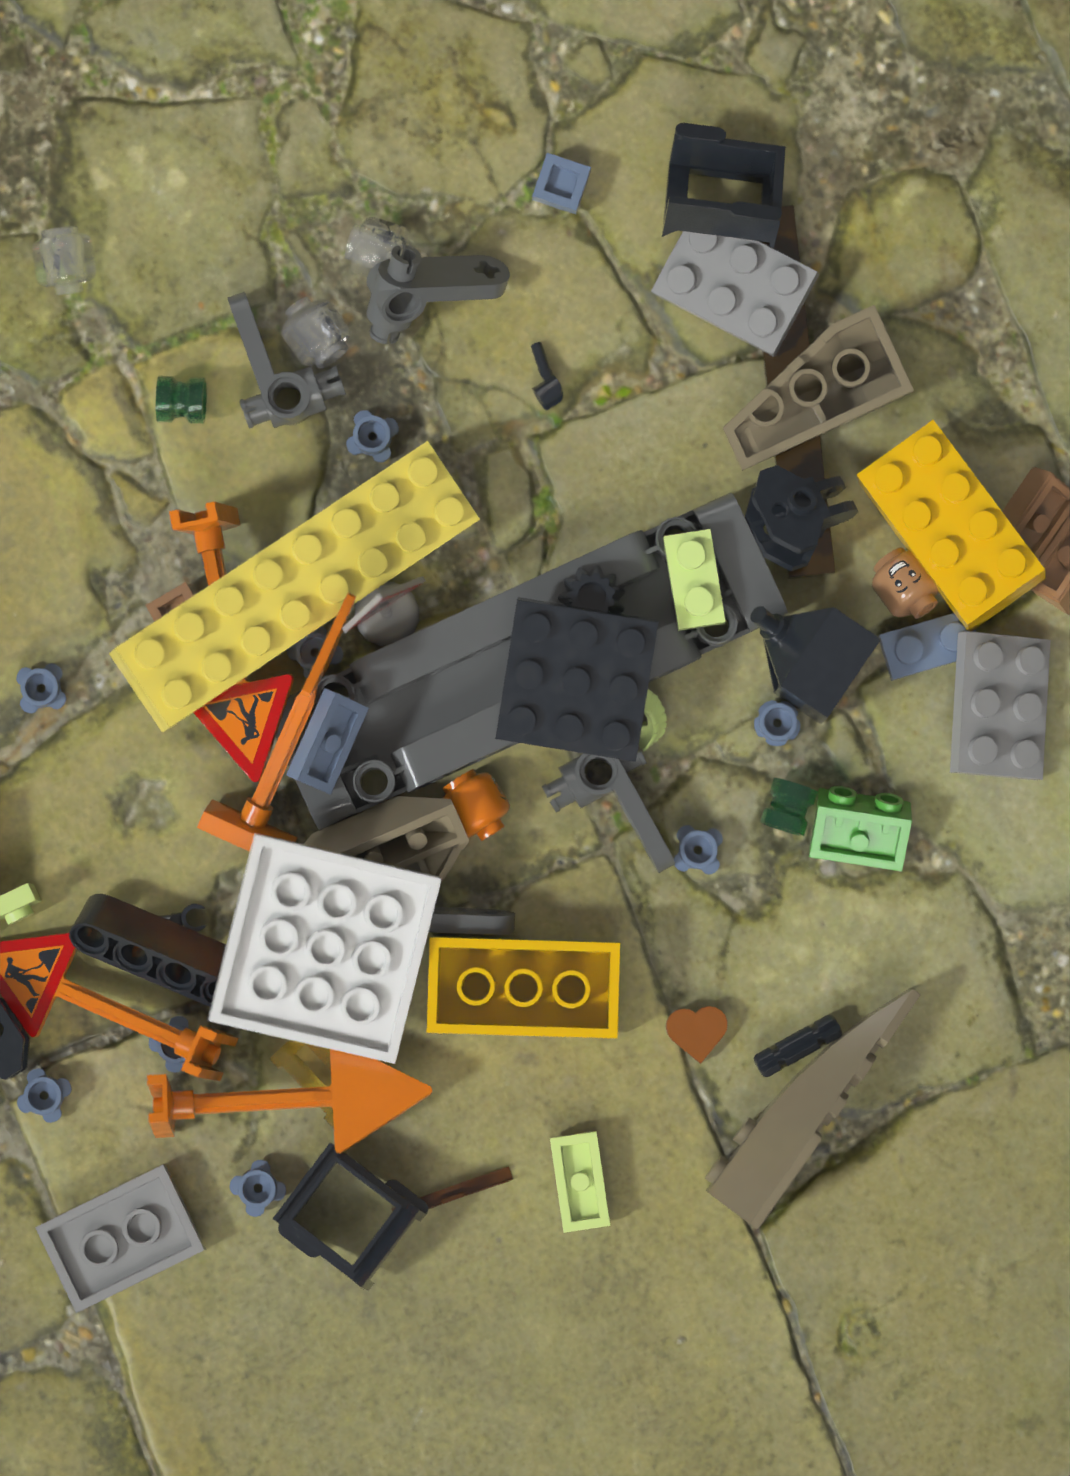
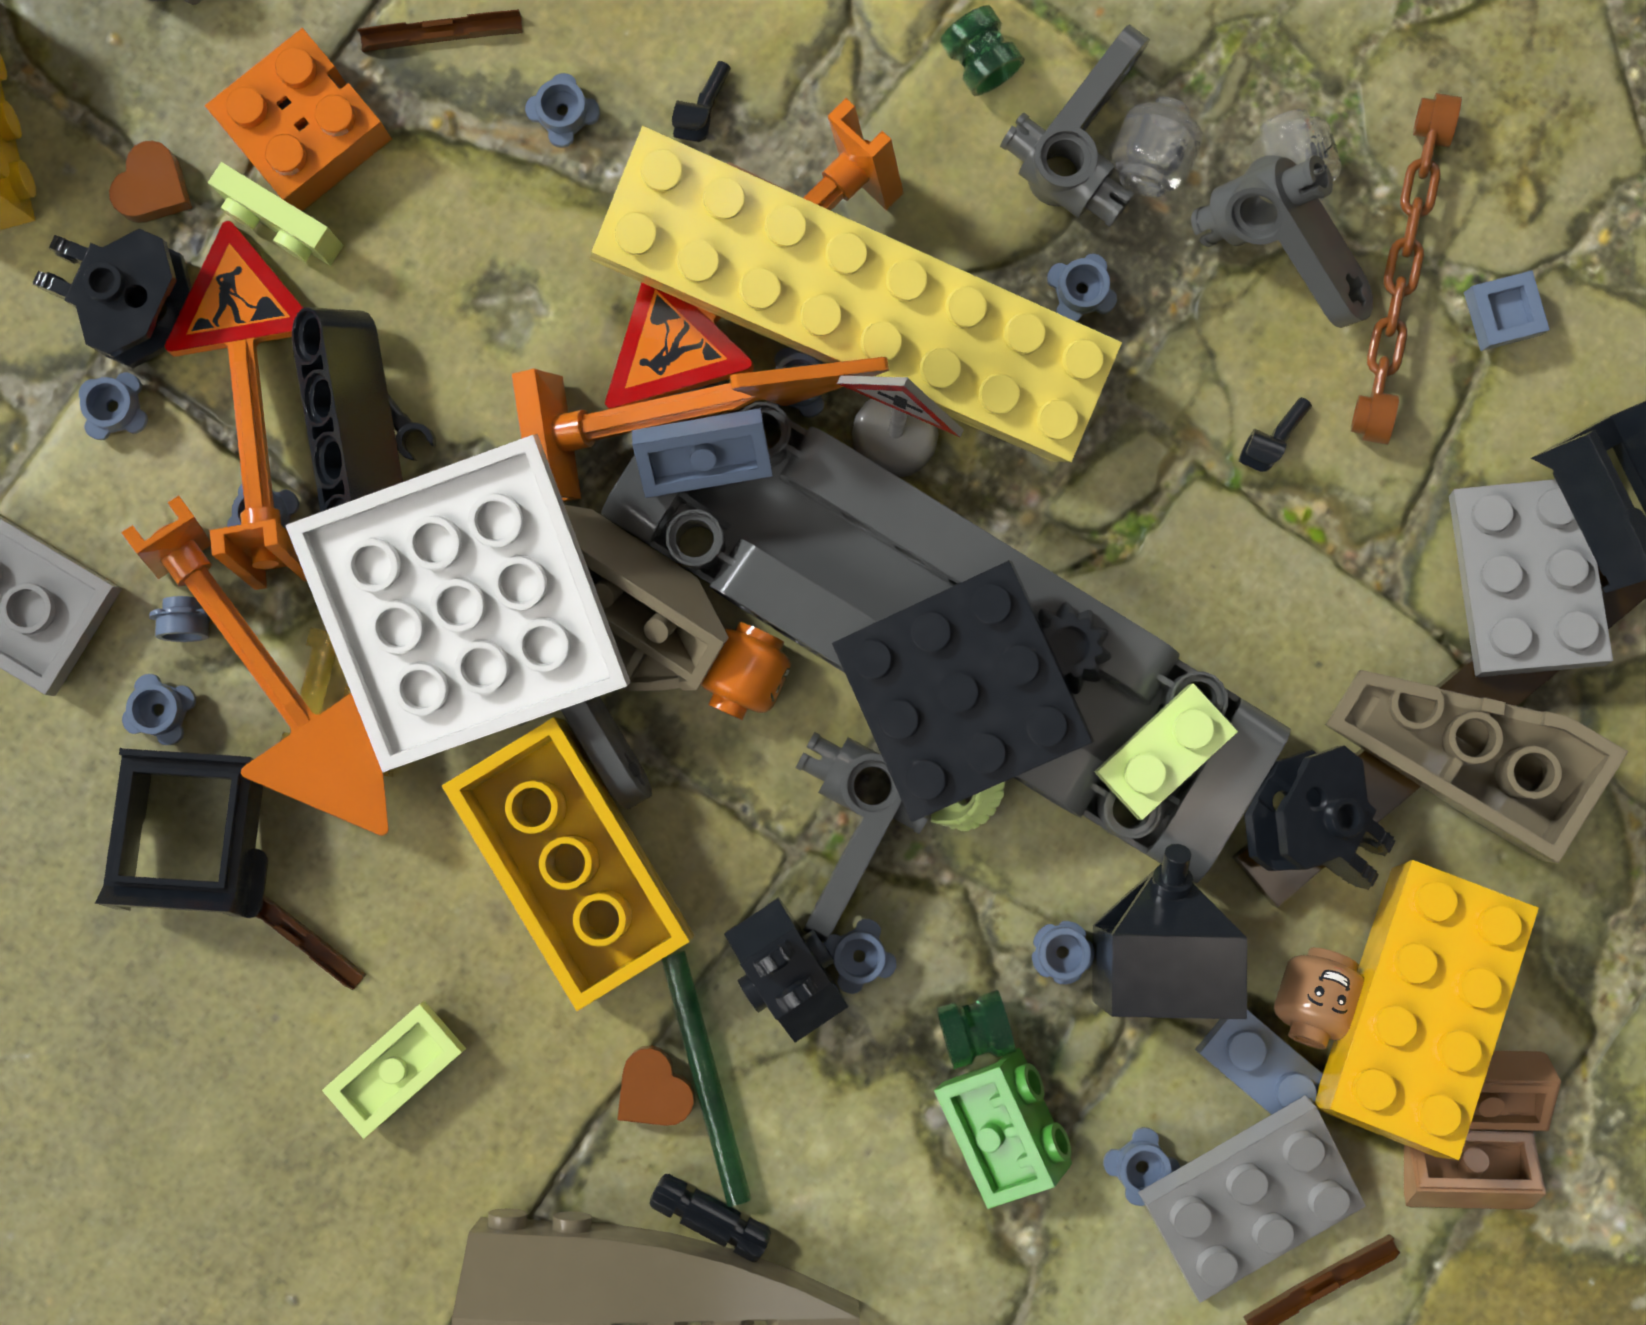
camera: 55 degrees right, 0 degrees up
(102, 609) = (693, 120): none -> black hand
(211, 1136) = (181, 620): none -> sand blue plate
(415, 145) = (1437, 123): none -> dark orange piece
(676, 898) = (786, 970): none -> black hinge
(710, 993) = (706, 1079): none -> clear green bar
(929, 769) = (1141, 1148): none -> sand blue plate

